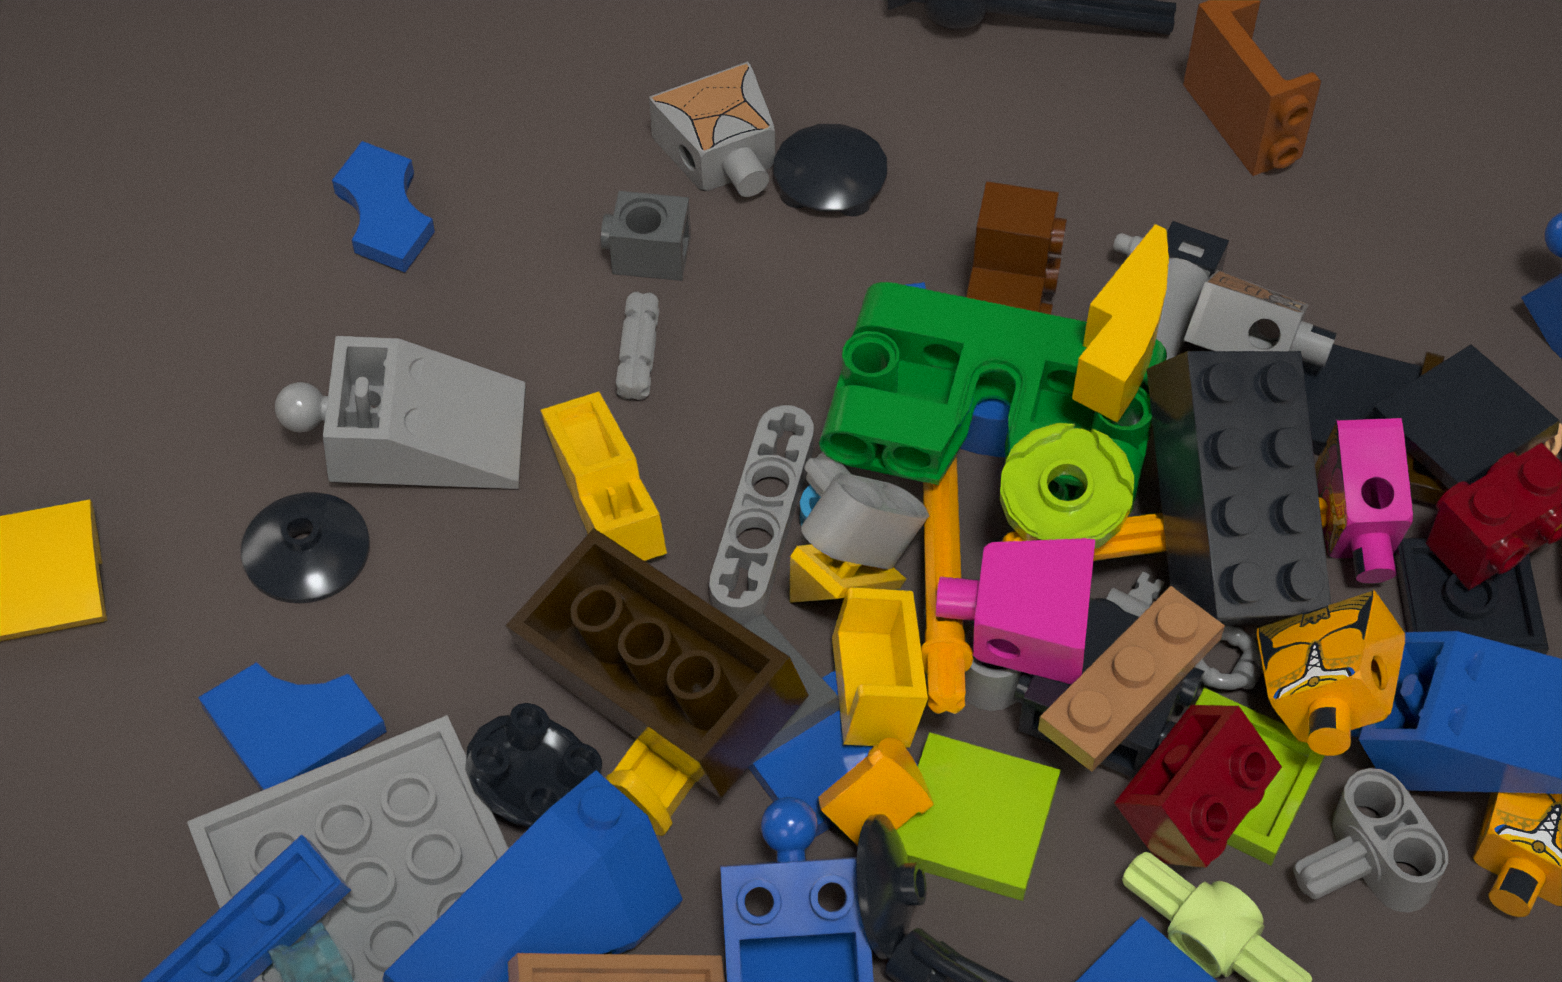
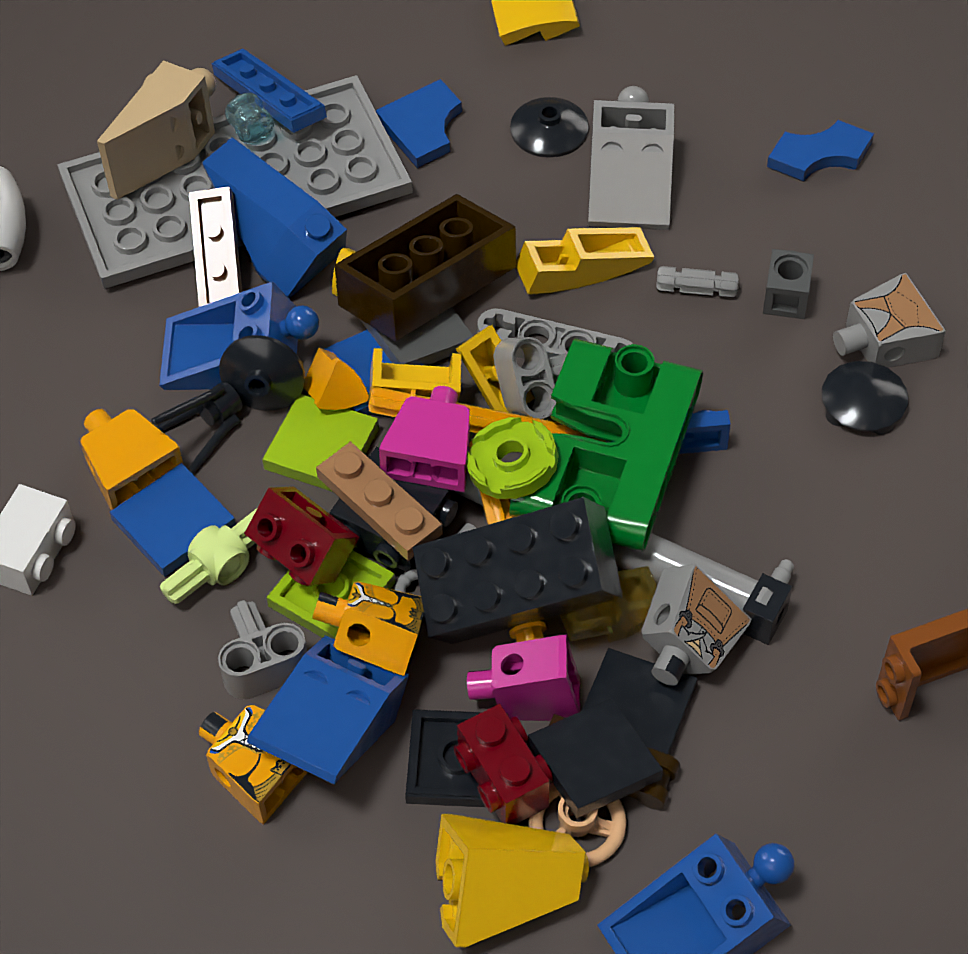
camera: 95 degrees right, 0 degrees up
(526, 763) = (372, 214): black dish -> none
(1014, 247) = (743, 486): reddish brown brick -> none
(1123, 329) = (642, 495): yellow slope -> none

